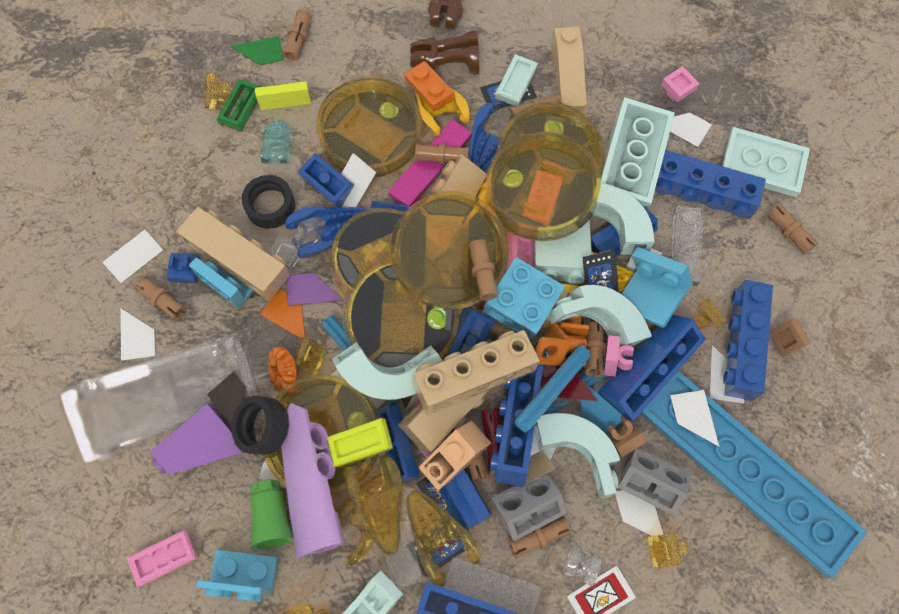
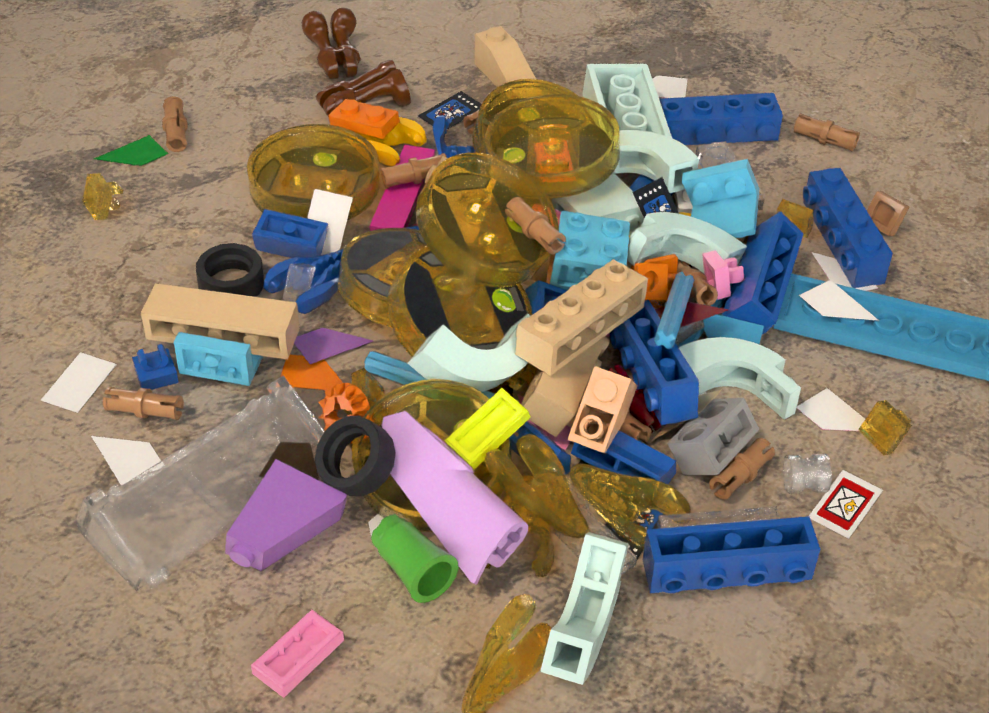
camera: 25 degrees left, 25 degrees down
(238, 120) = (138, 220): green tile -> none
(241, 573) = (414, 630): medium azure bracket -> none
(276, 135) = (206, 223): clear light blue plate -> none
(283, 95) = (191, 177): neon yellow tile -> none
(516, 80) = (455, 96): light aqua tile -> none
(626, 438) = (778, 341): medium nougat tile -> none
(655, 481) = (834, 368): light grey brick -> none
(679, 84) = (634, 49): bright pink tile -> none
(766, 157) = (783, 80): light aqua plate -> none

